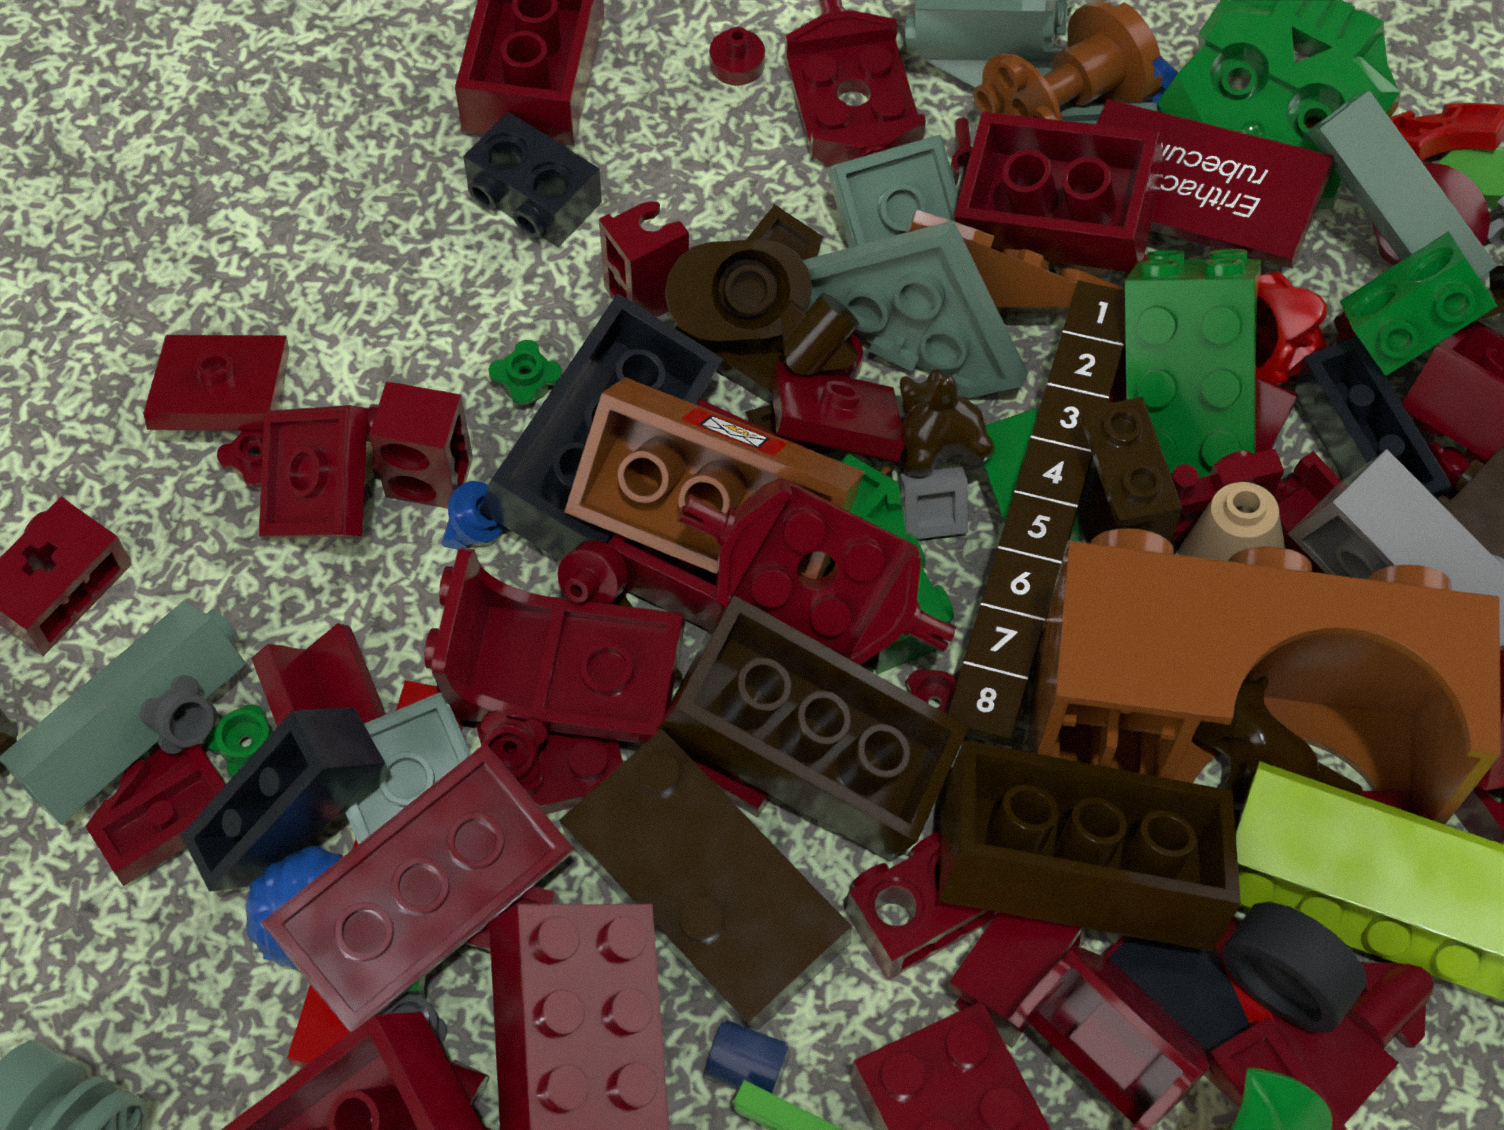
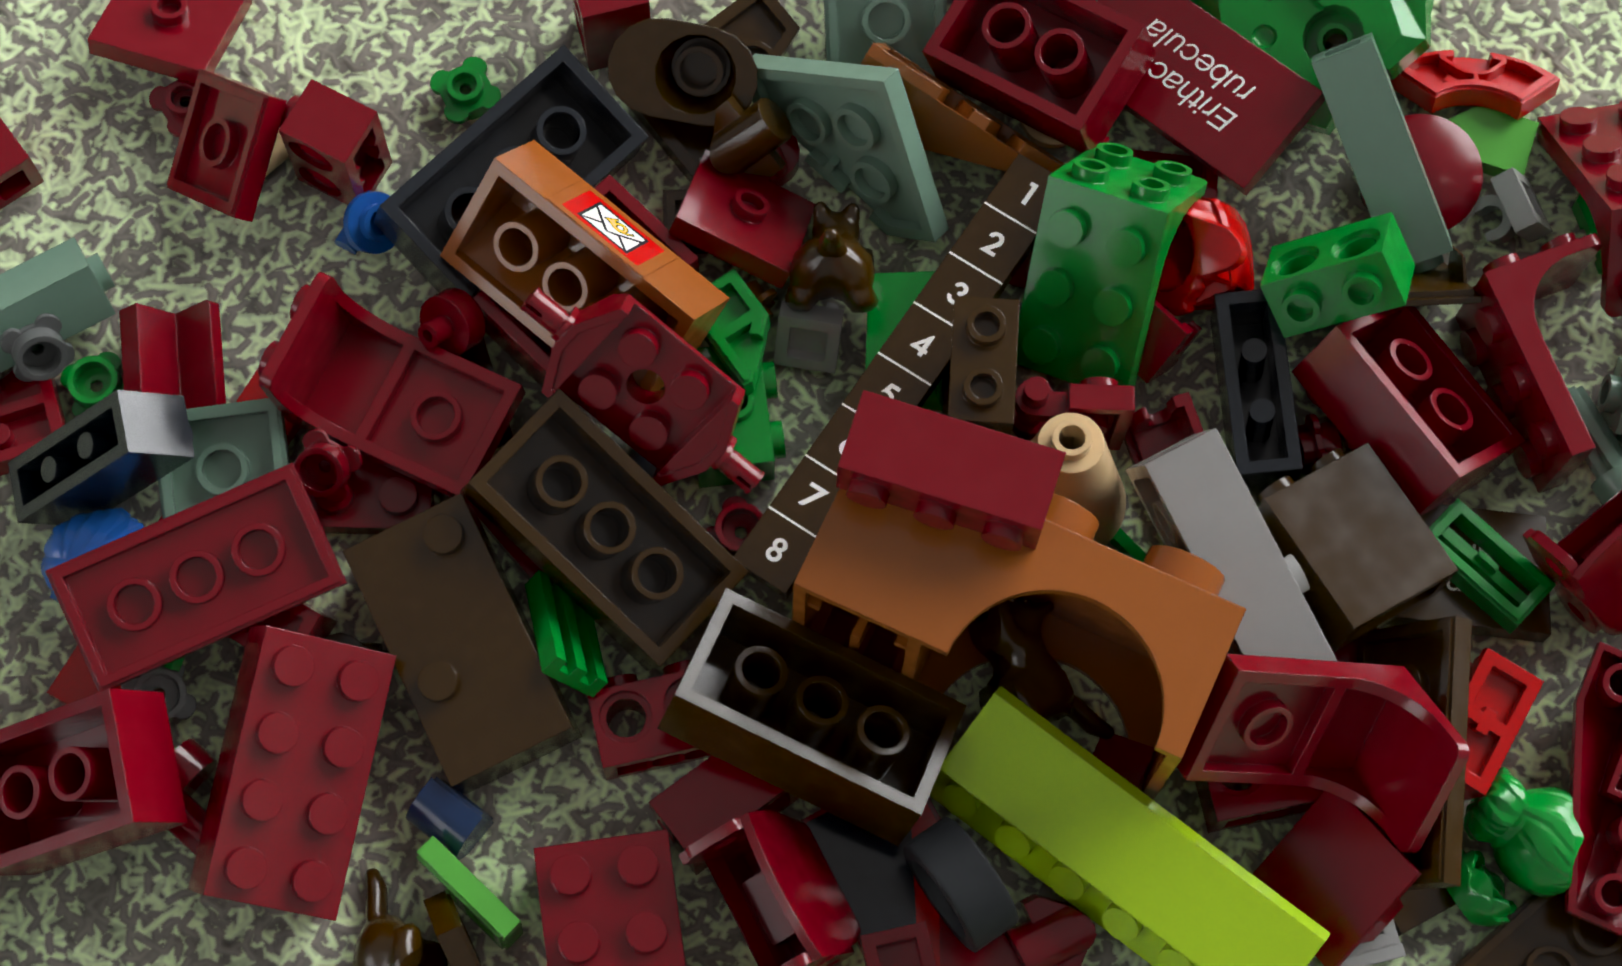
camera: 15 degrees right, 10 degrees up
(807, 844) = (564, 636): none -> green tile
(1173, 541) = (948, 471): none -> dark red brick

